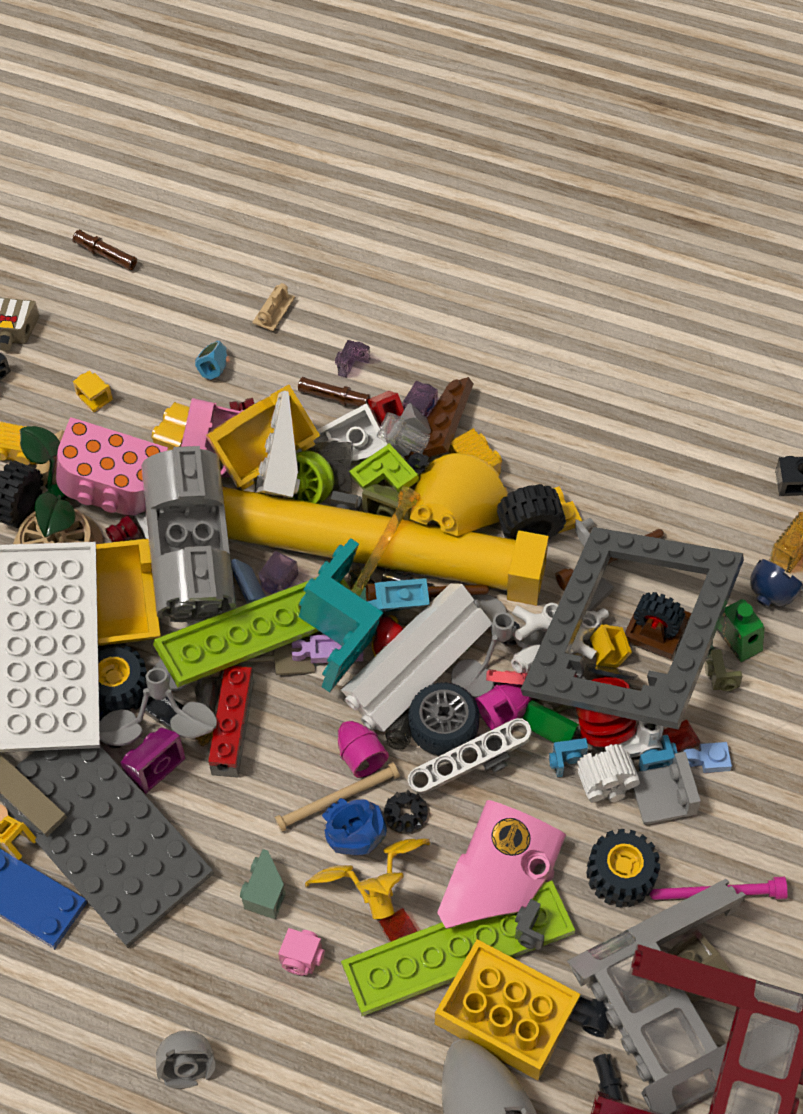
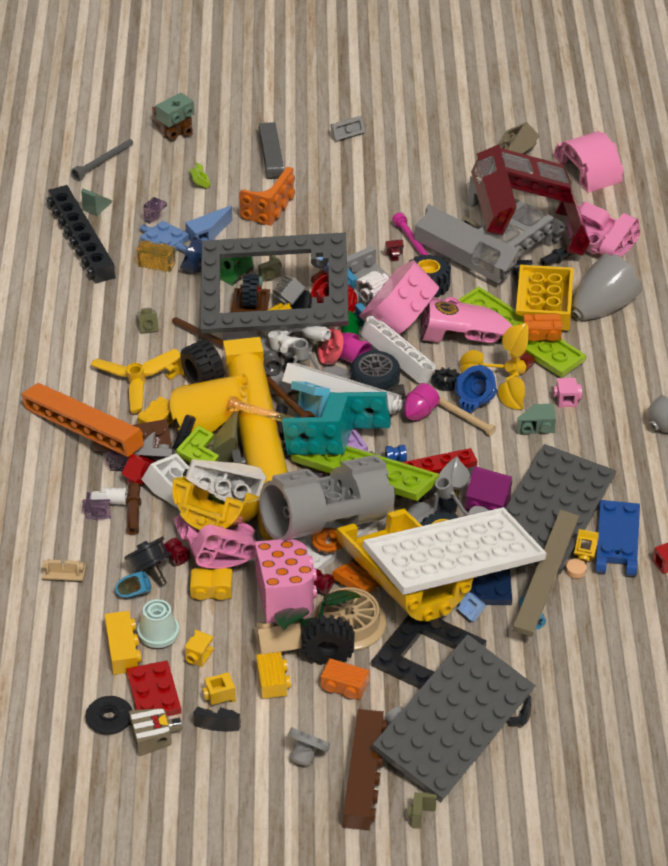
camera: 115 degrees left, 15 degrees down
(25, 391) = (219, 689): none -> yellow brick
(66, 306) = (102, 705): none -> black wheel
(66, 342) = (154, 687): none -> red plate
(96, 246) = (42, 706): reddish brown pin -> none
(140, 327) = (122, 641): none -> yellow brick
(140, 361) = (157, 625): none -> light aqua piece
(234, 372) = (148, 557): none -> black wheel
(285, 685) = (396, 453): none -> blue wheel
(365, 375) = (116, 495): none -> white hinge
(397, 431) = (169, 438): clear piece -> none
(431, 965) = (543, 327): none -> orange brick
(485, 367) = (83, 419): none -> orange brick
(513, 599) = (272, 363): none -> dark grey wheel
(526, 920) = (491, 297): dark grey bracket -> none
(553, 785) = (402, 297): none -> bright pink brick
(561, 455) = (136, 374): none -> yellow piece
(639, 659) = (288, 290): none -> light grey brick
(670, 499) = (147, 320): none -> olive bracket
(707, 849) = (394, 249): none -> dark red tile

